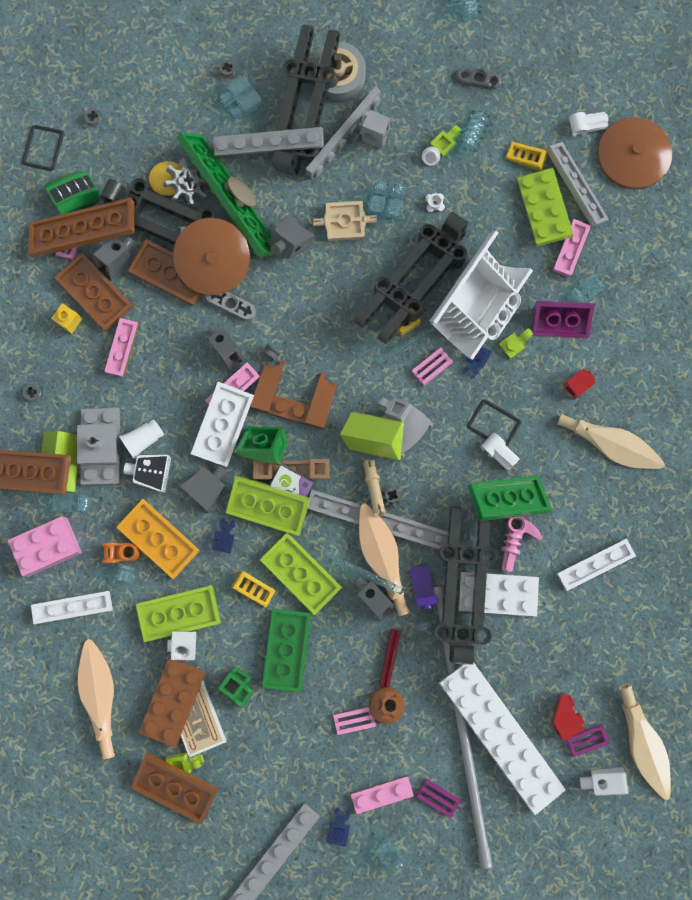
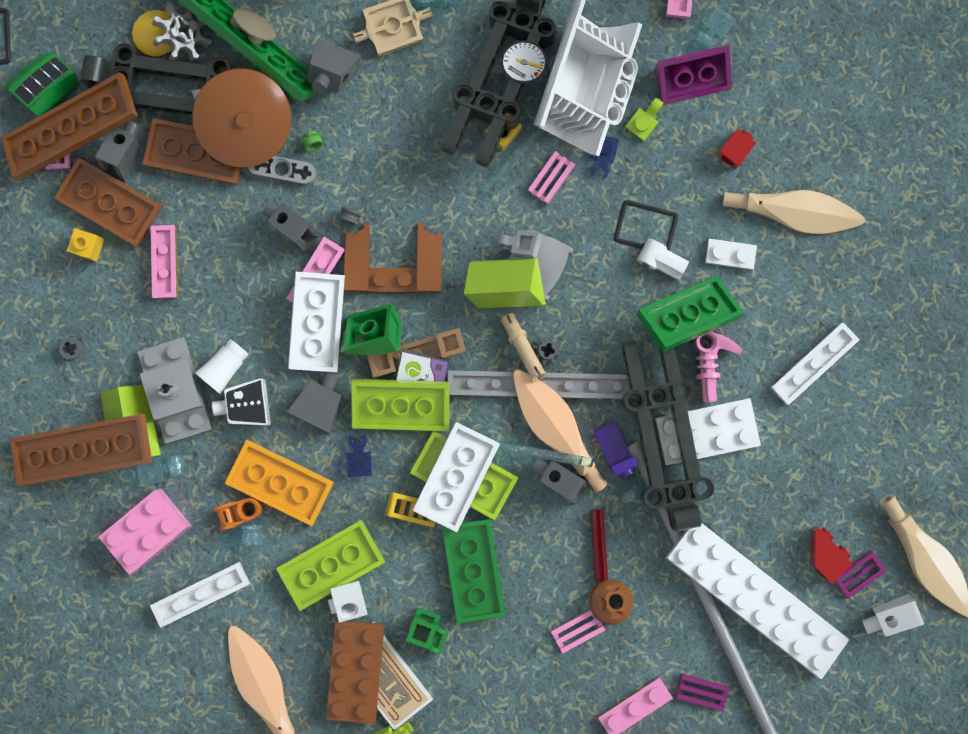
camera: 15 degrees left, 5 degrees up
(259, 289) = (310, 138): none -> bright green plate
(294, 572) = (456, 477): none -> white plate
(435, 273) = (523, 61): none -> white sticker
(553, 462) = (730, 254): none -> white plate

